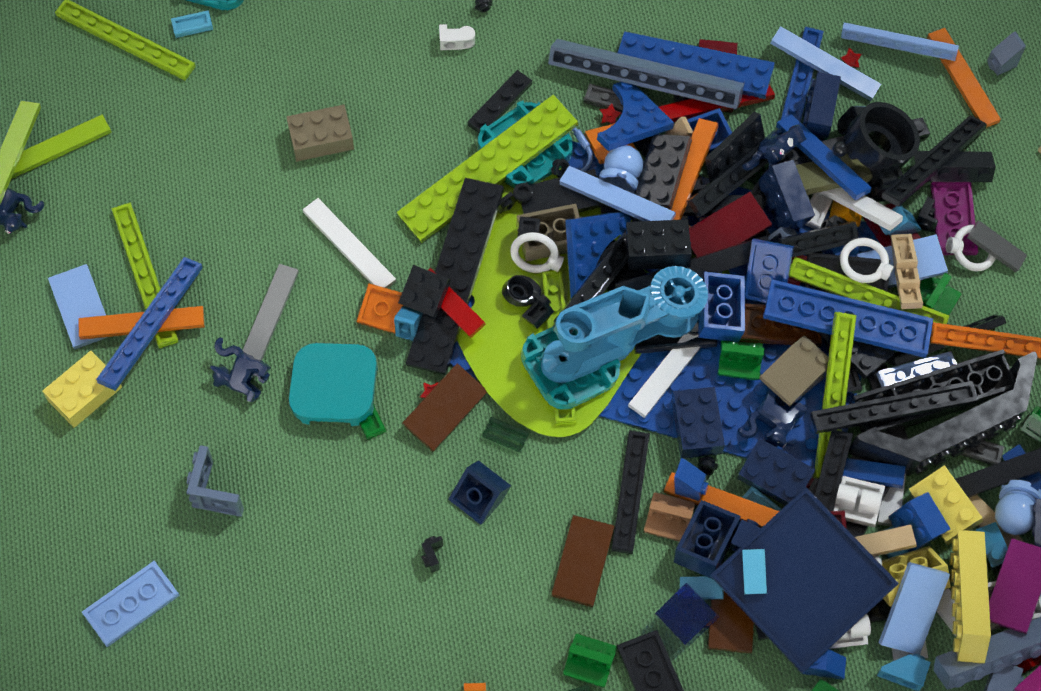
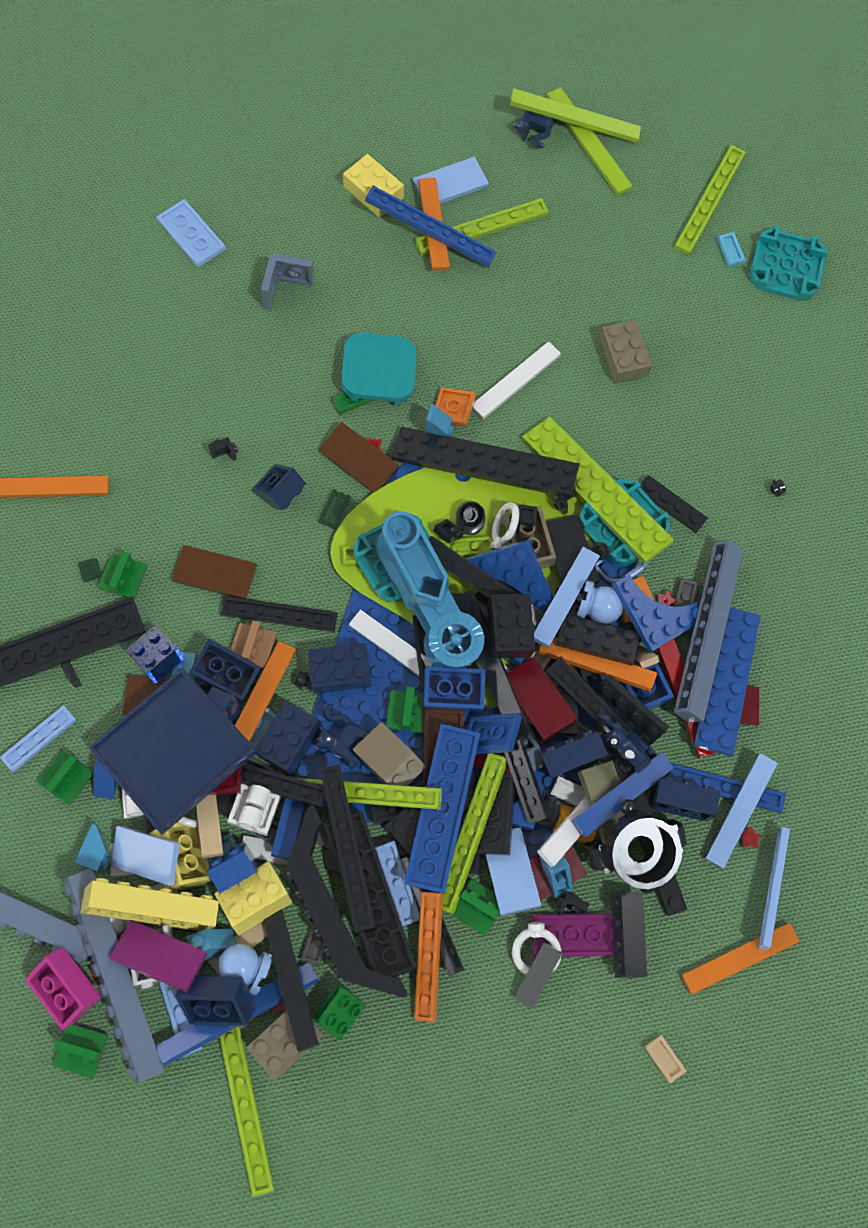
camera: 85 degrees right, 5 degrees up
(242, 372) = (388, 296): dark blue animal -> none
(270, 311) = (441, 319): light grey tile -> none
(424, 291) = (462, 431): black plate -> none
(456, 38) = (736, 463): white leg -> none
(461, 313) = (453, 454): red tile -> none
(523, 193) = (570, 518): black tile -> none
(690, 481) = (278, 656): blue slope -> none
(754, 571) = (179, 703): medium azure tile -> none
(883, 270) = (493, 844): white piece -> none
(906, 271) = (497, 870): tan slope -> none
(934, 161) = (629, 911): black tile -> none
(1006, 54) = (768, 1003): sand blue slope -> none

